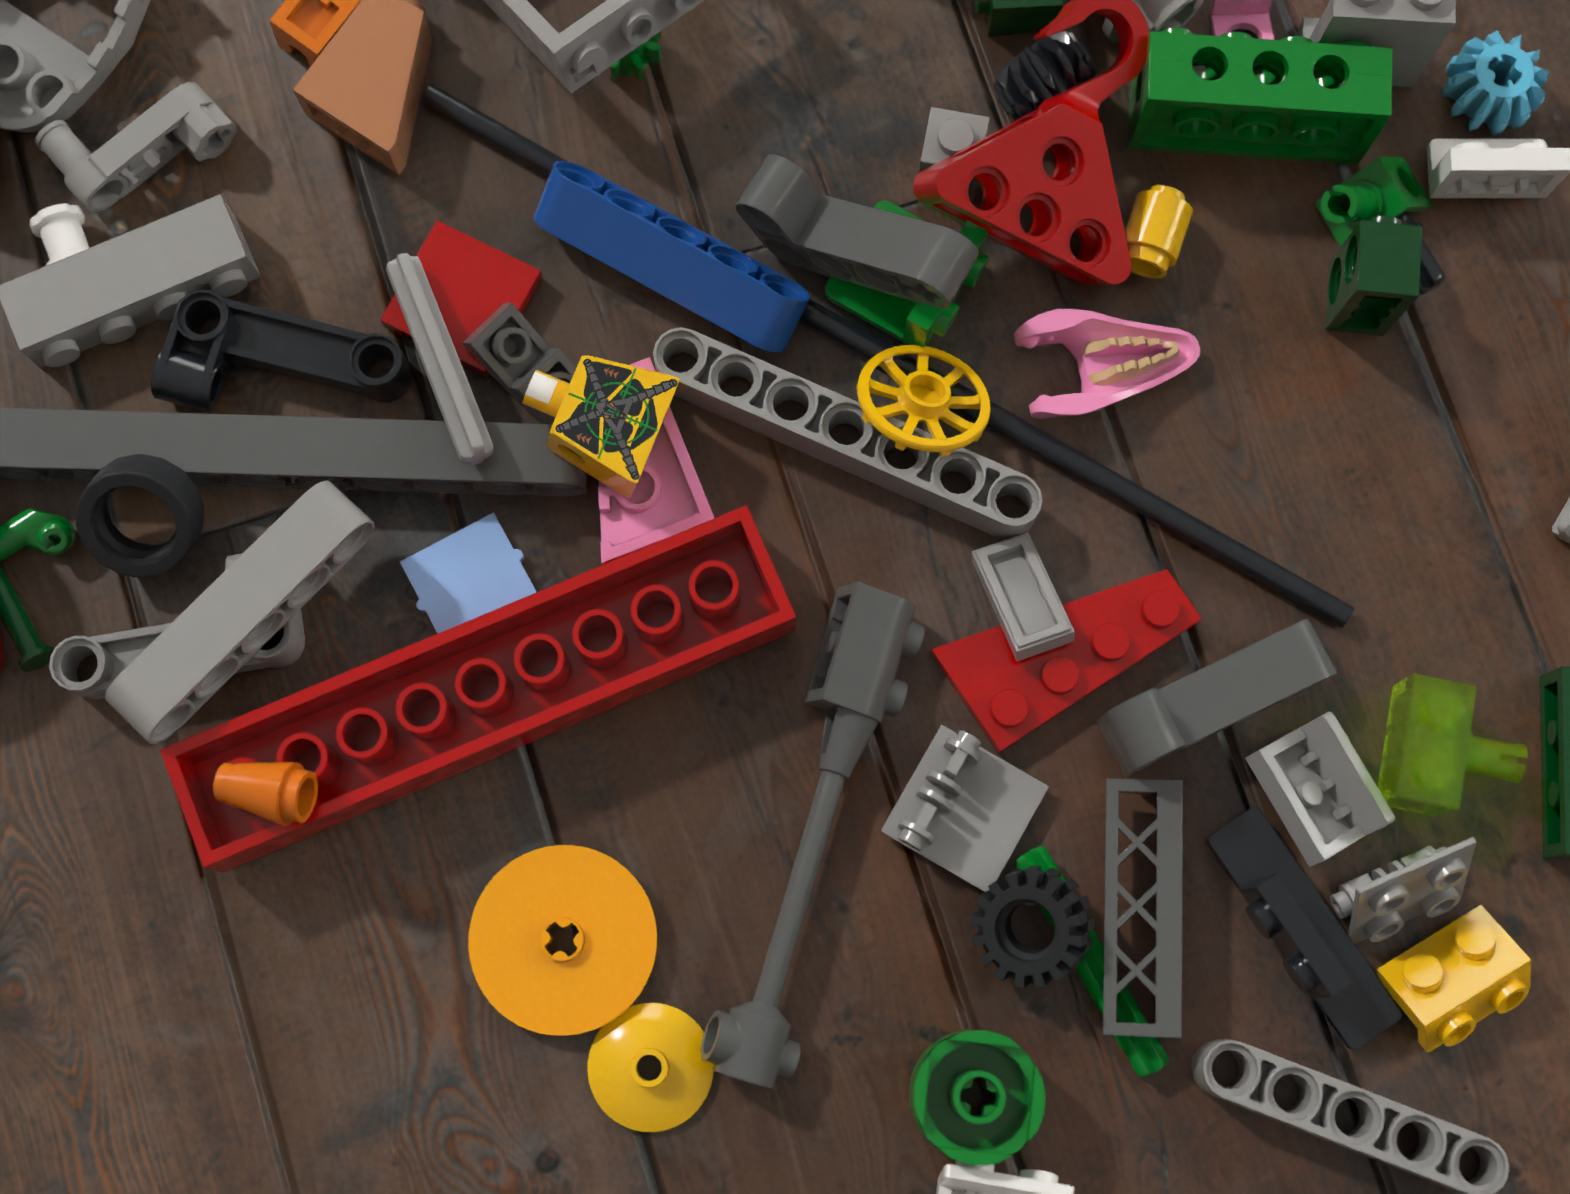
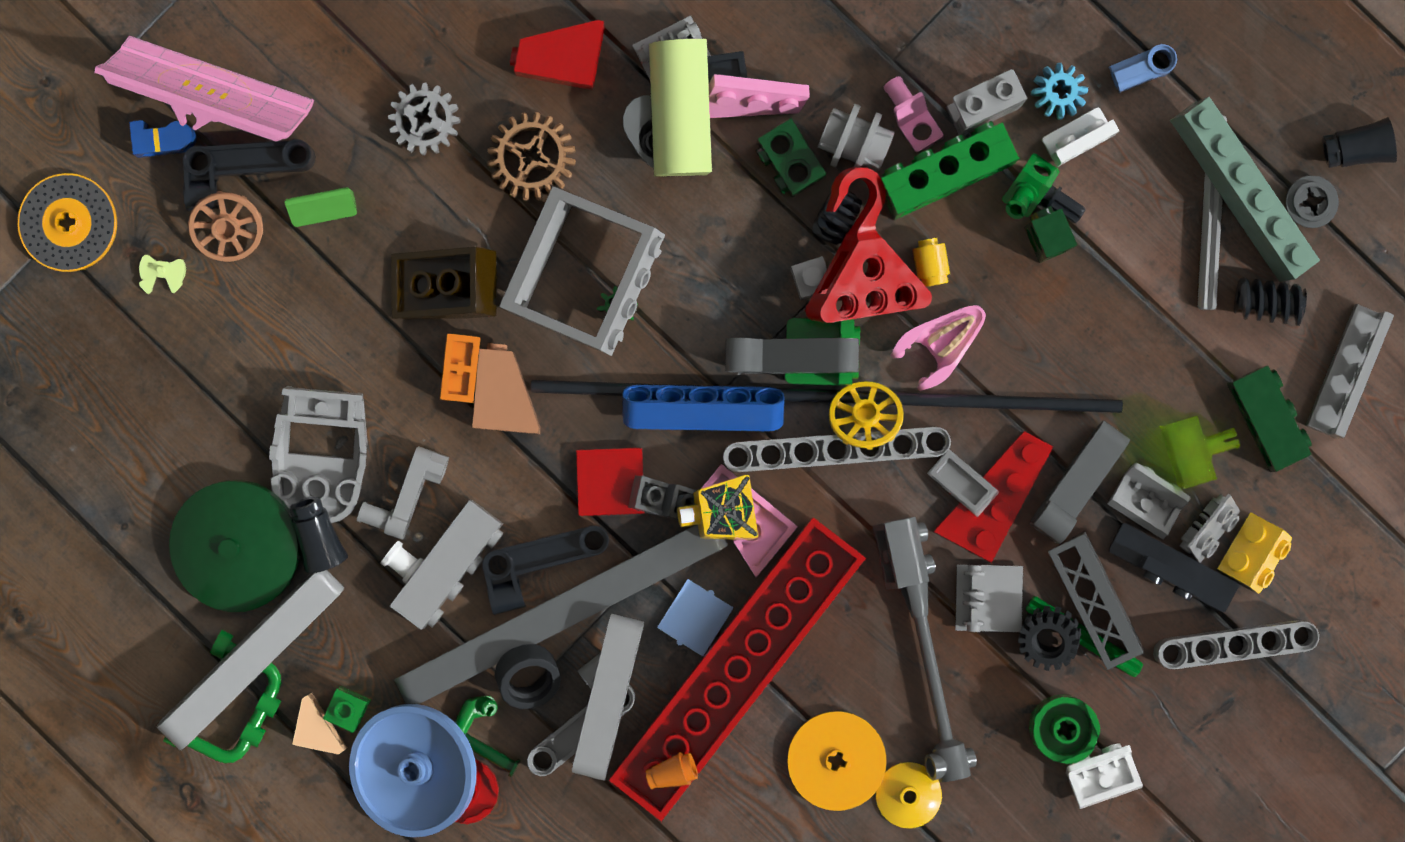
camera: 25 degrees left, 10 degrees up
(440, 359) = (624, 523): light grey axle -> none

